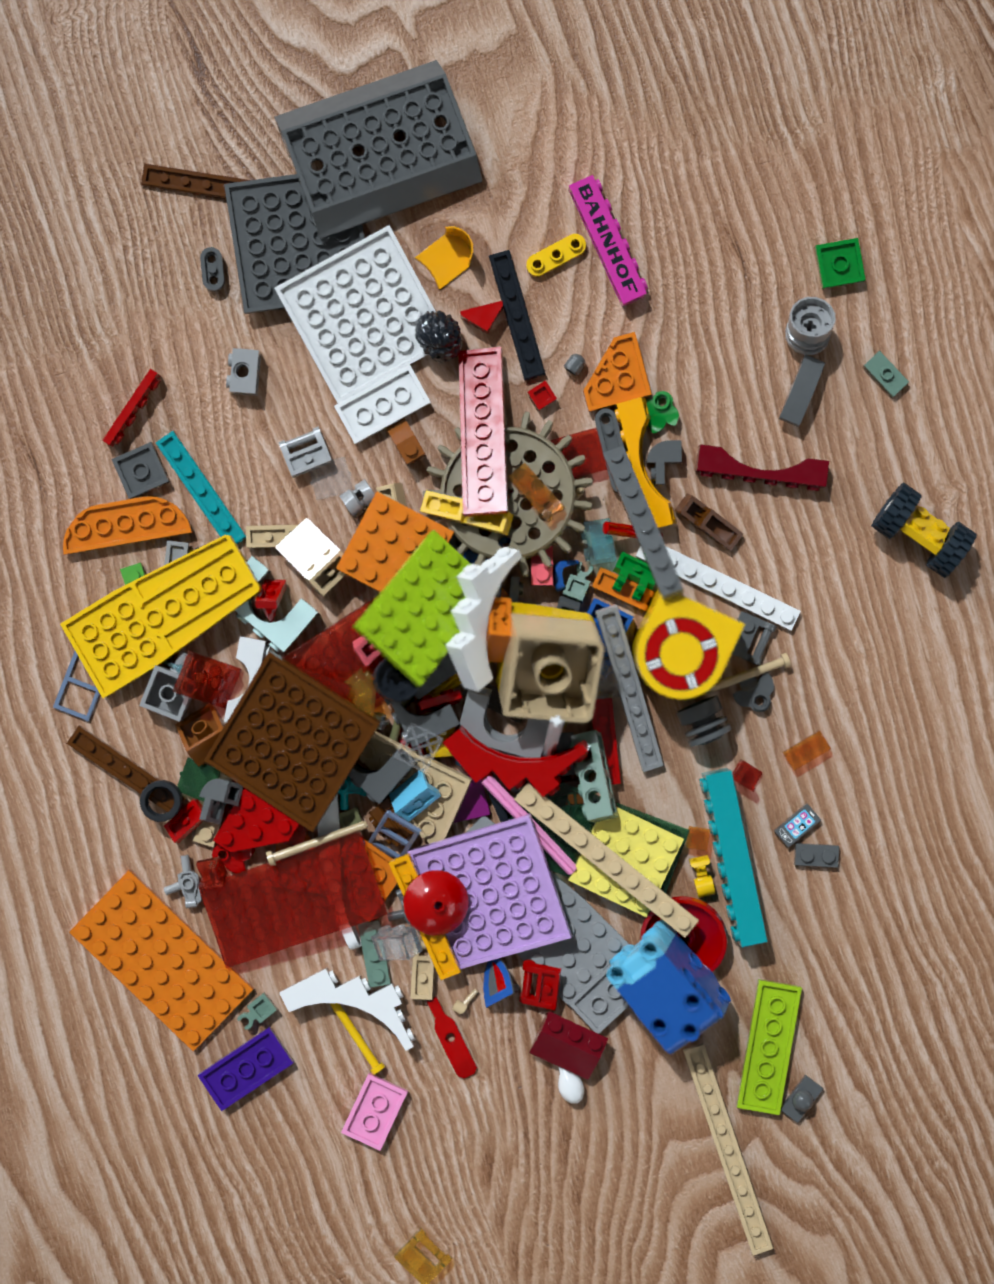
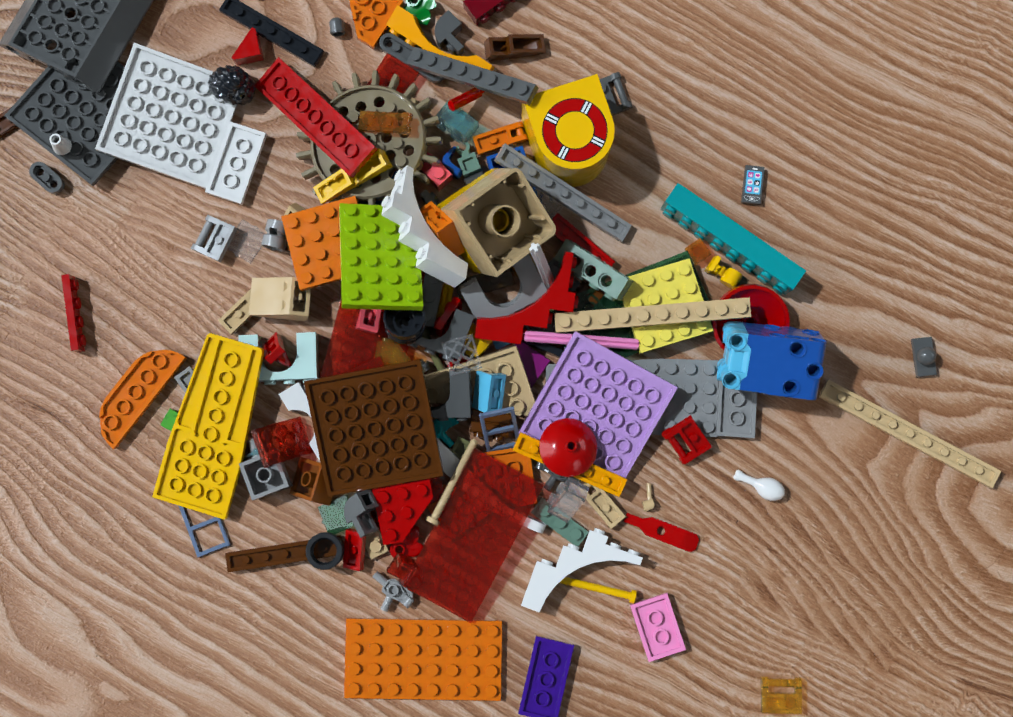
camera: 45 degrees left, 5 degrees down
(140, 470) = (115, 348): dark grey plate -> none
(199, 487) = (163, 323): teal tile -> none
(244, 385) = (118, 215): light grey brick -> none
(249, 262) = (60, 144): none -> white cone
(259, 1009) = (519, 630): sand green plate -> none
(406, 441) = (274, 172): dark orange slope -> none
(448, 256) = (193, 31): light orange piece -> none
(497, 982) = (657, 464): shield -> none
(542, 395) = (334, 65): red plate -> none
(568, 1045) = (742, 462): dark red slope -> none
(635, 570) = (497, 118): green plate -> none
(704, 721) = (630, 171): dark grey wheel -> none
(731, 589) = (602, 66): white plate -> none
(746, 775) = (690, 181): clear red panel -> none
(755, 688) = (642, 125): dark grey plate -> none
(769, 1047) = (871, 343): lime plate -> none
(782, 661) = (644, 90): tan bar -> none
(806, 750) = (713, 132): clear orange plate -> none
(816, 855) = (782, 192): dark grey plate -> none

